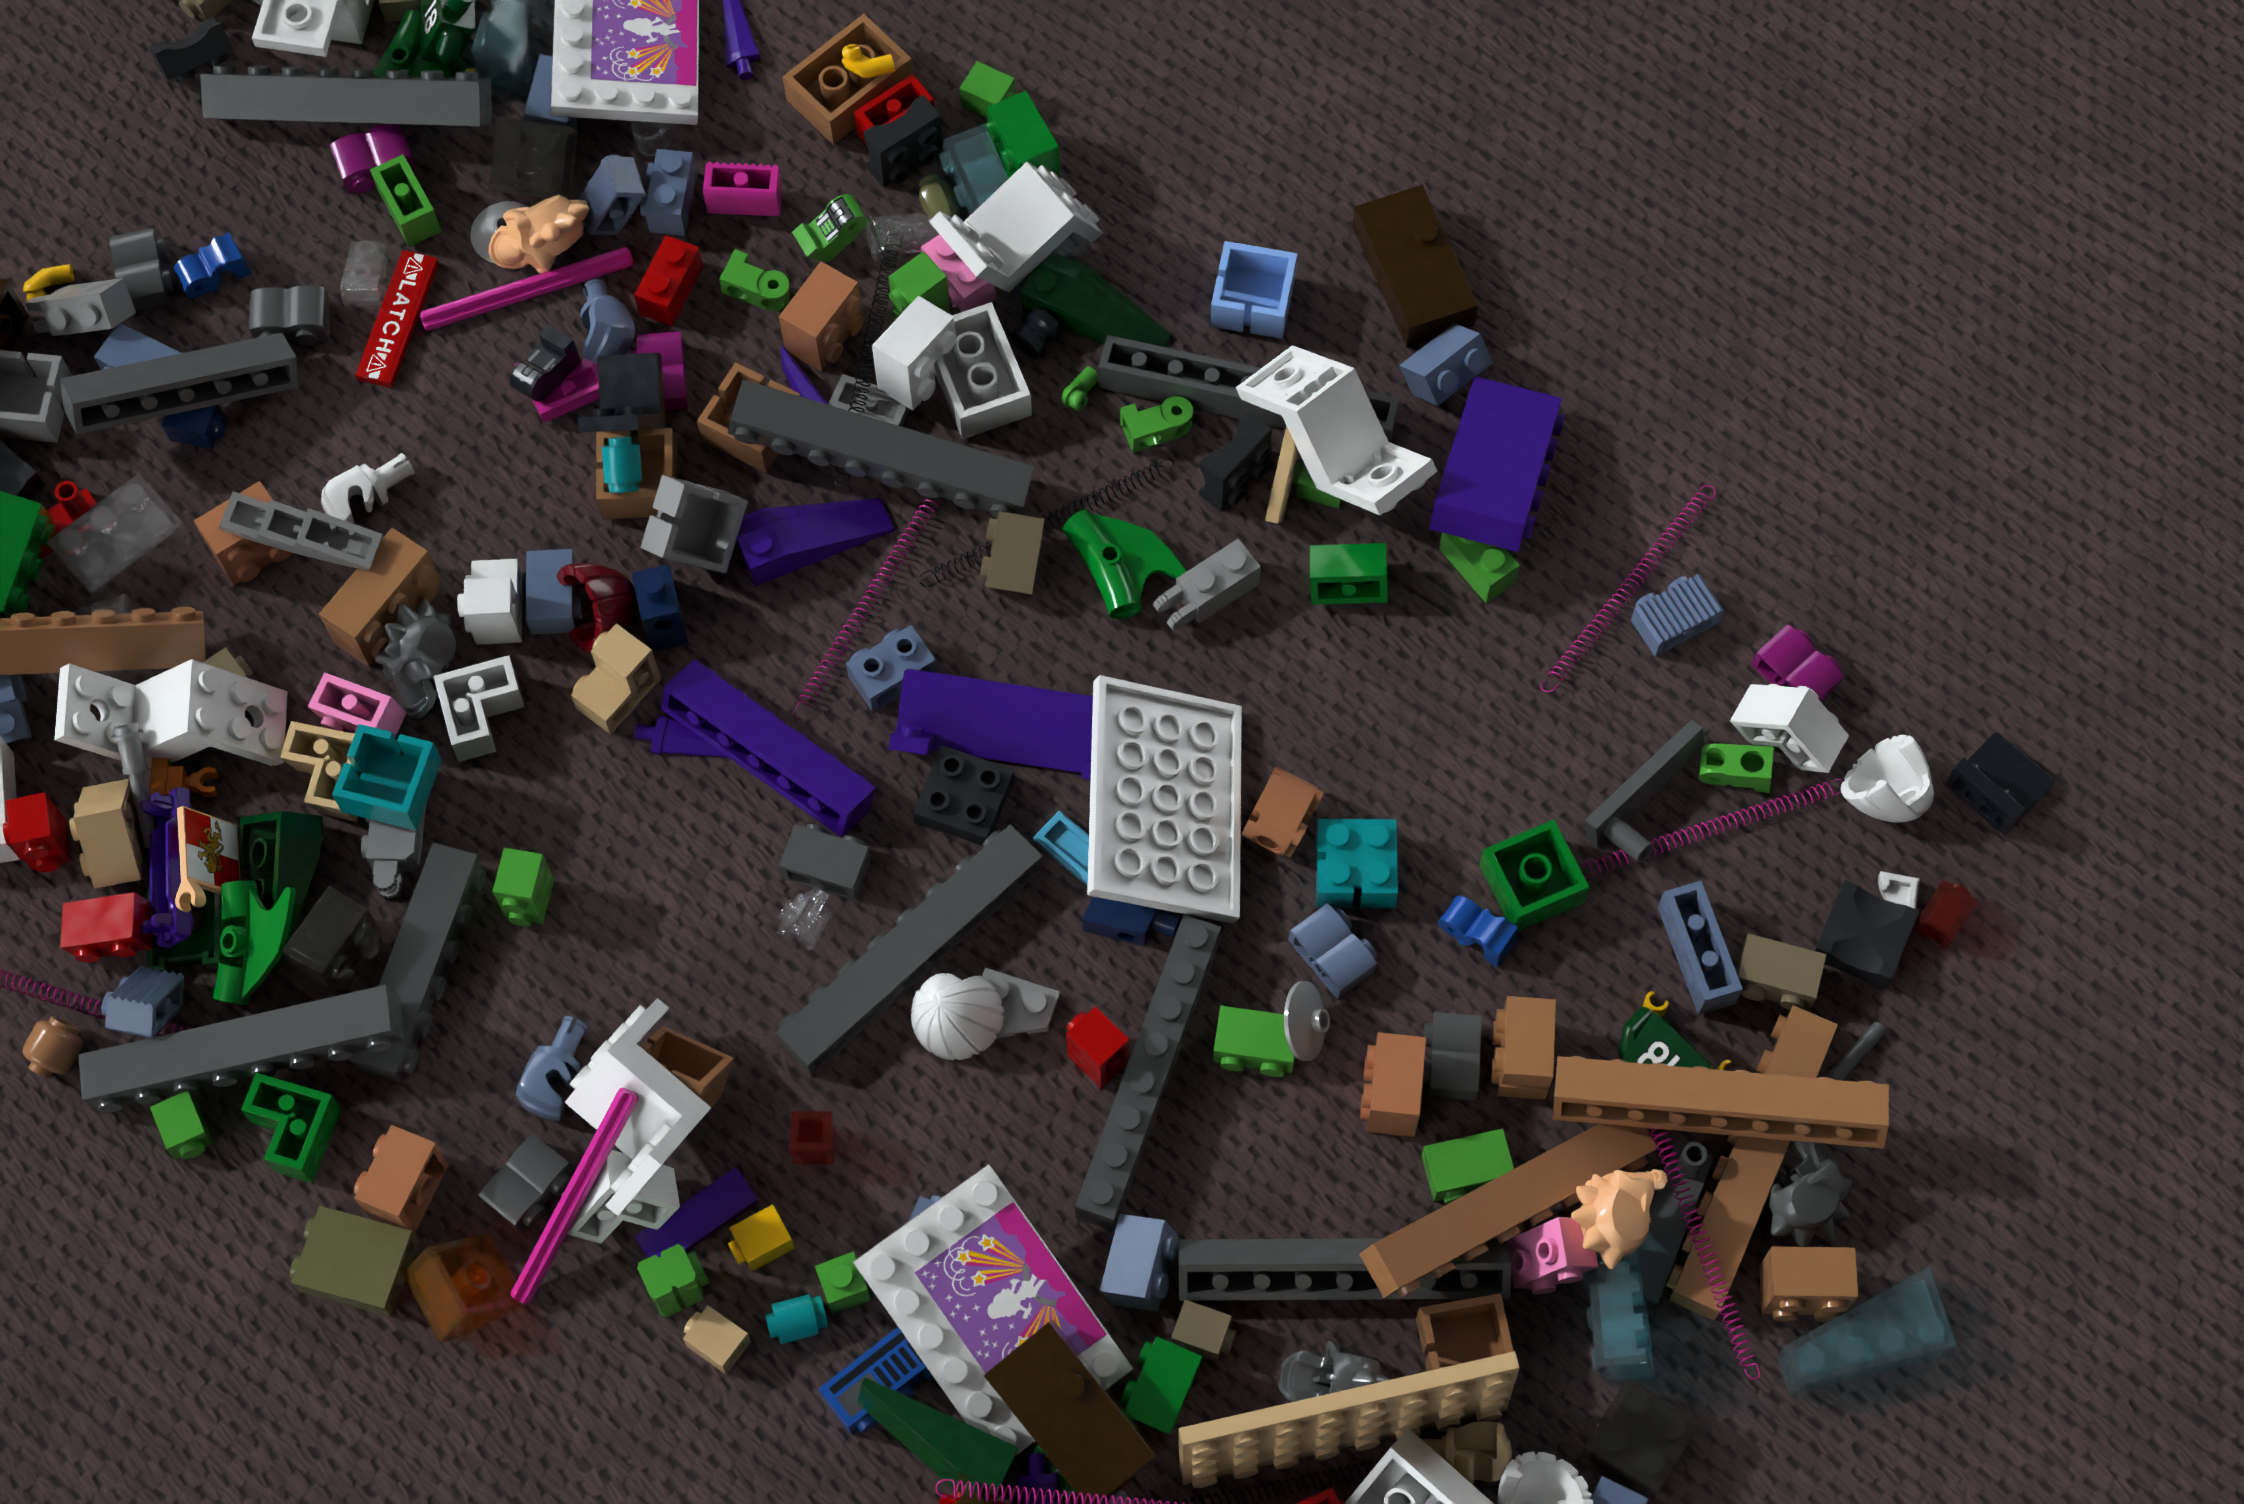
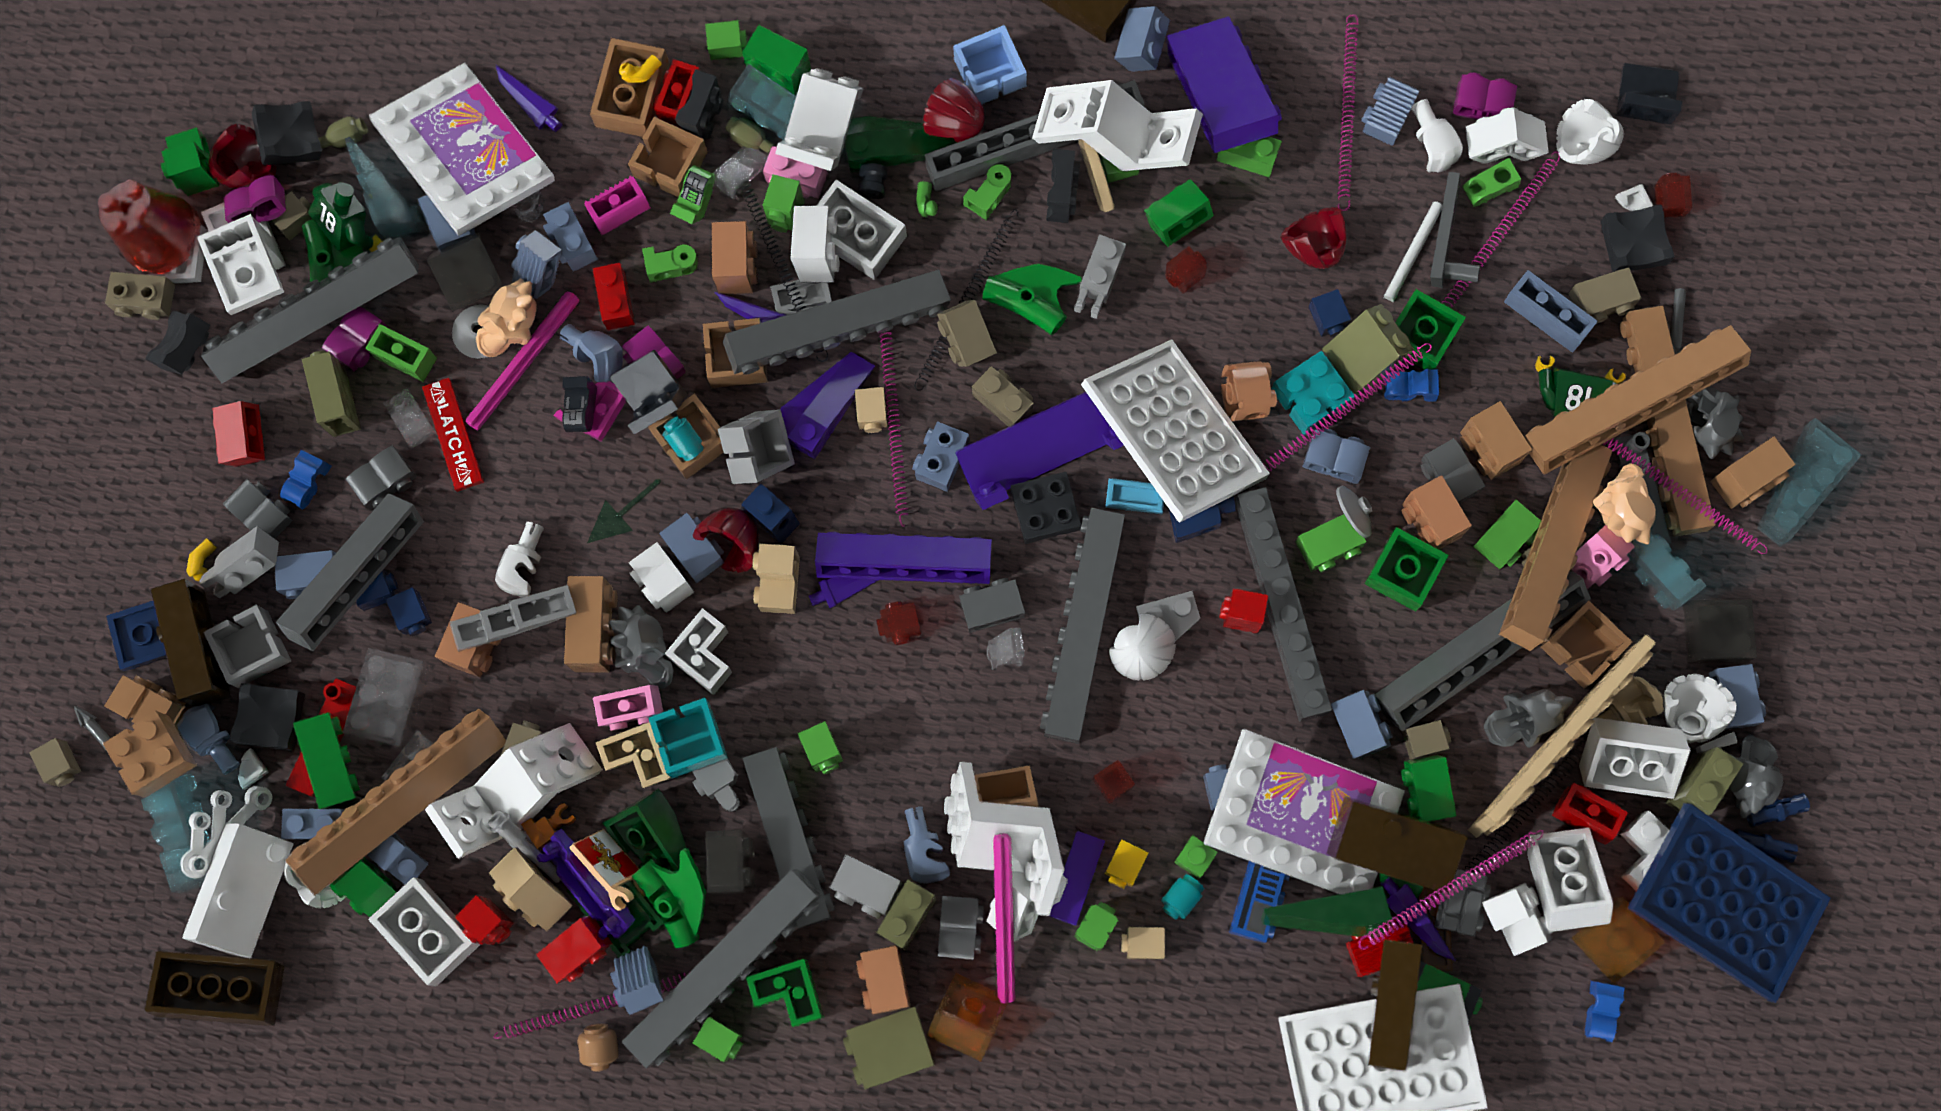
camera: 30 degrees left, 10 degrees up
(182, 174) = (238, 433): none -> brick
(211, 468) = (409, 612): none -> dark blue brick
(301, 195) = (330, 393): none -> olive brick
(456, 1067) = (866, 886): none -> light grey piece
(475, 1125) = (906, 915): none -> olive brick
(491, 512) = (611, 523): none -> clear green piece
(711, 814) = (898, 623): none -> clear red brick
(842, 171) = (670, 157): none -> medium nougat piece
(853, 569) = (871, 409): none -> tan brick
(1003, 645) = (1002, 397): none -> dark tan brick
(1172, 308) = (953, 112): none -> dark red hair
(1311, 639) = (1185, 269): none -> clear red brick
(1318, 1124) = (1406, 569): none -> green brick
(1372, 899) = (1348, 405): none -> dark pink piece
(1441, 790) = (1329, 313): none -> dark blue brick
(1450, 851) = (1368, 348): none -> olive brick
(1483, 700) = (1317, 238): none -> dark red hair
(1587, 788) = (1413, 251): none -> white bar
(1707, 678) = (1438, 137): none -> white piece

